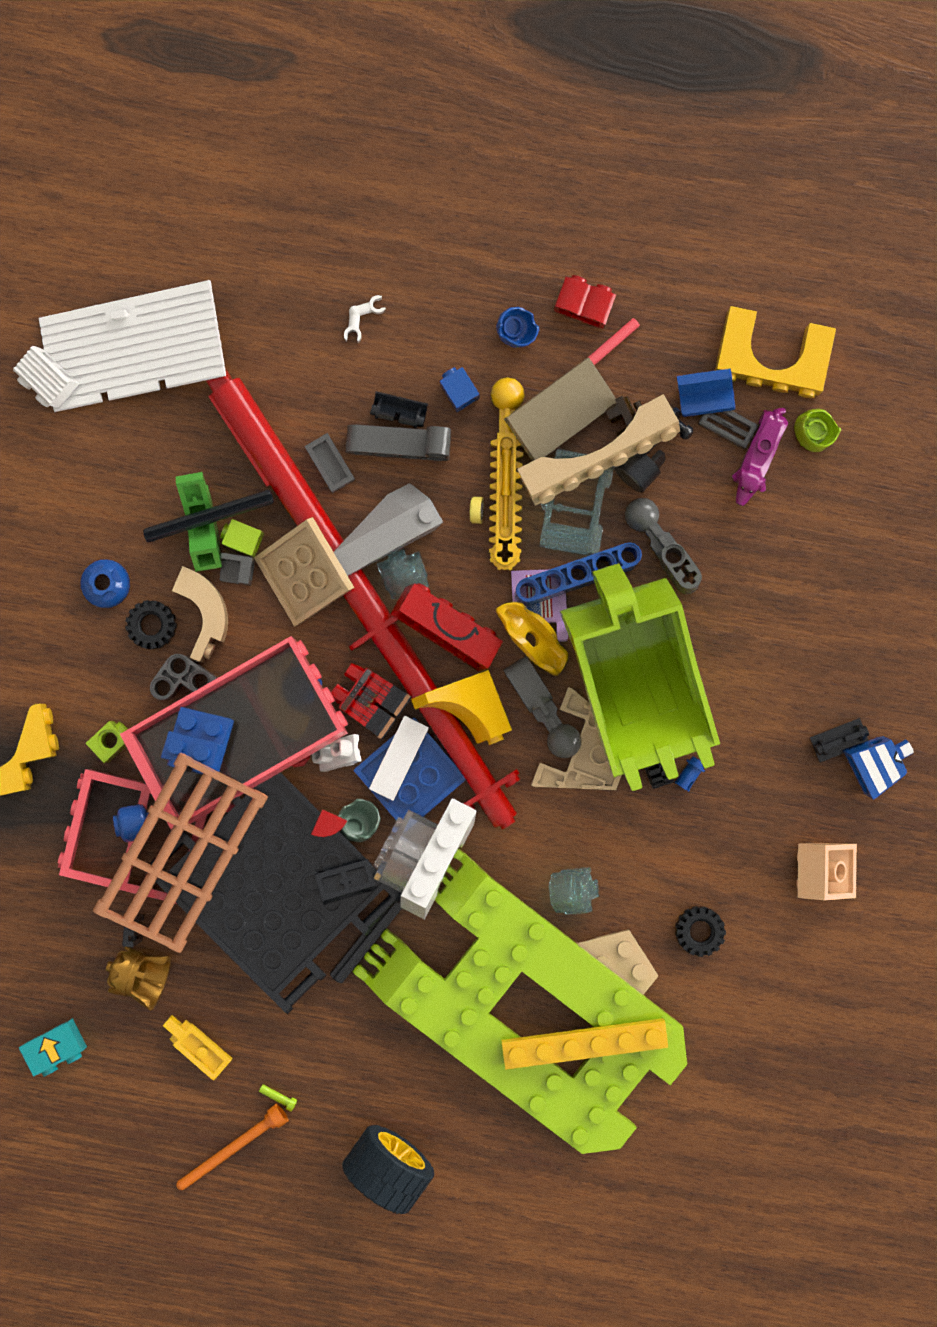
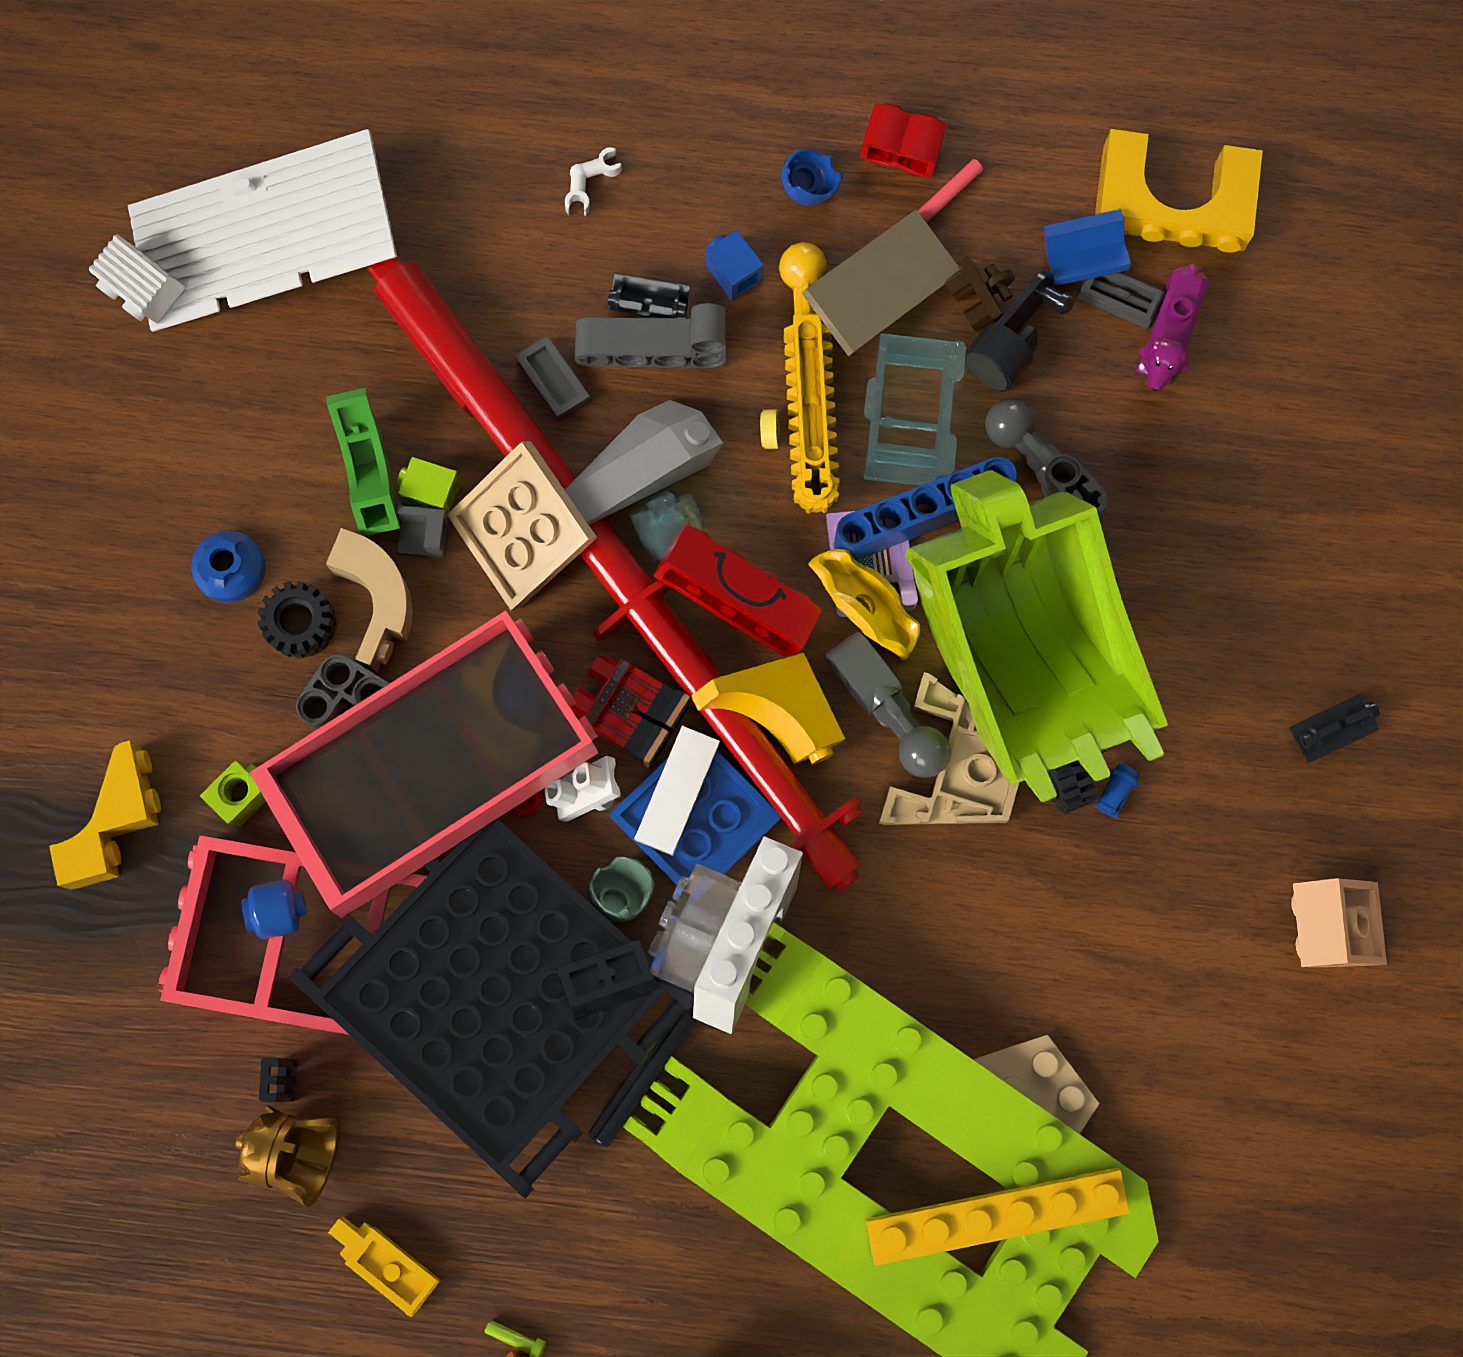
camera: 10 degrees left, 10 degrees down
(52, 1048) = (153, 1280): teal brick -> none
(180, 824) = (346, 992): nougat door -> none
(199, 737) = (368, 774): blue plate -> none
(208, 516) = (376, 453): black axle -> none
(328, 824) = (574, 893): red tile -> none
(551, 476) = (878, 365): tan arch -> none
(573, 890) = (956, 978): clear light blue hair -> none
(711, 943) = (1182, 1029): black tyre -> none
(816, 430) = (1248, 293): lime hair -> none
(878, 763) = (1397, 758): blue torso -> none

